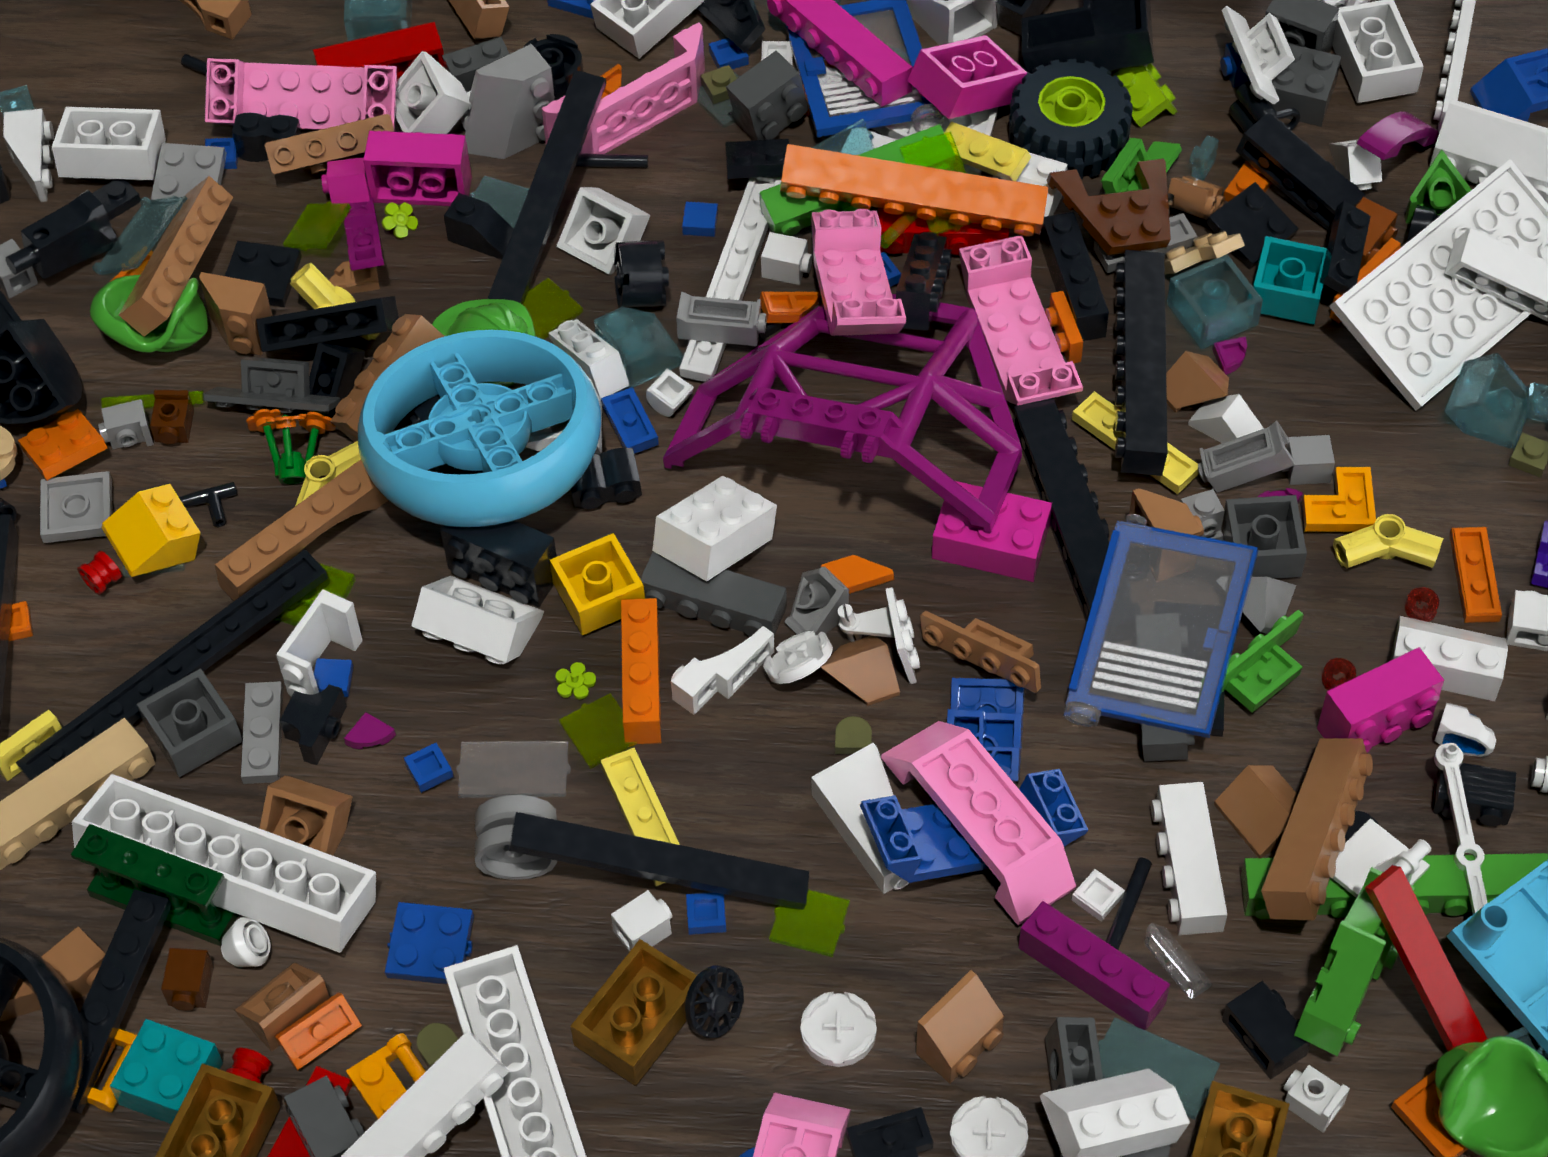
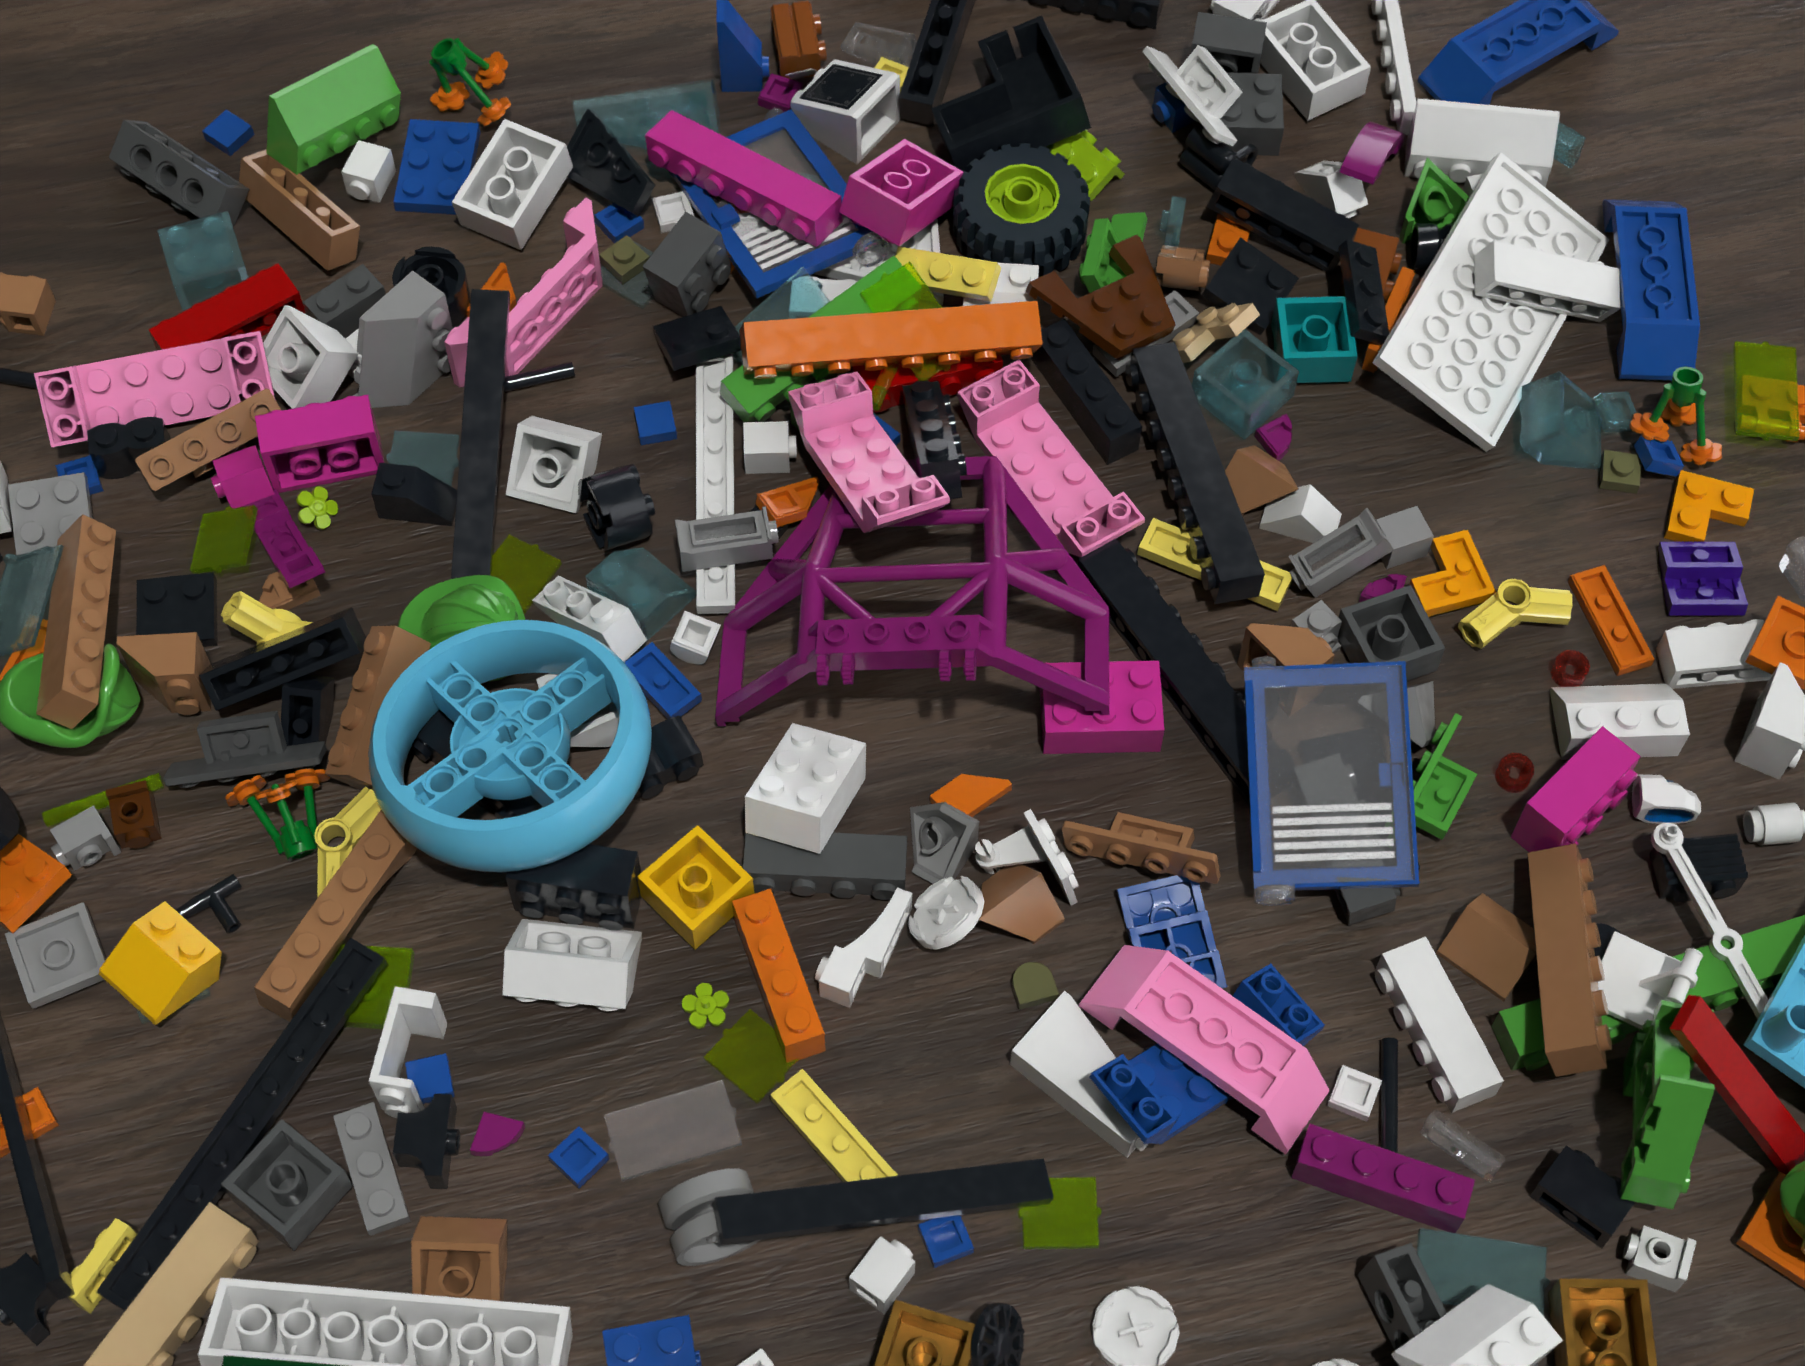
camera: 20 degrees left, 5 degrees up
(99, 572) = (114, 1028): red wheel -> none
(959, 1028) = (1272, 1297): medium nougat slope -> none
(1066, 329) = (1096, 451): orange plate -> none

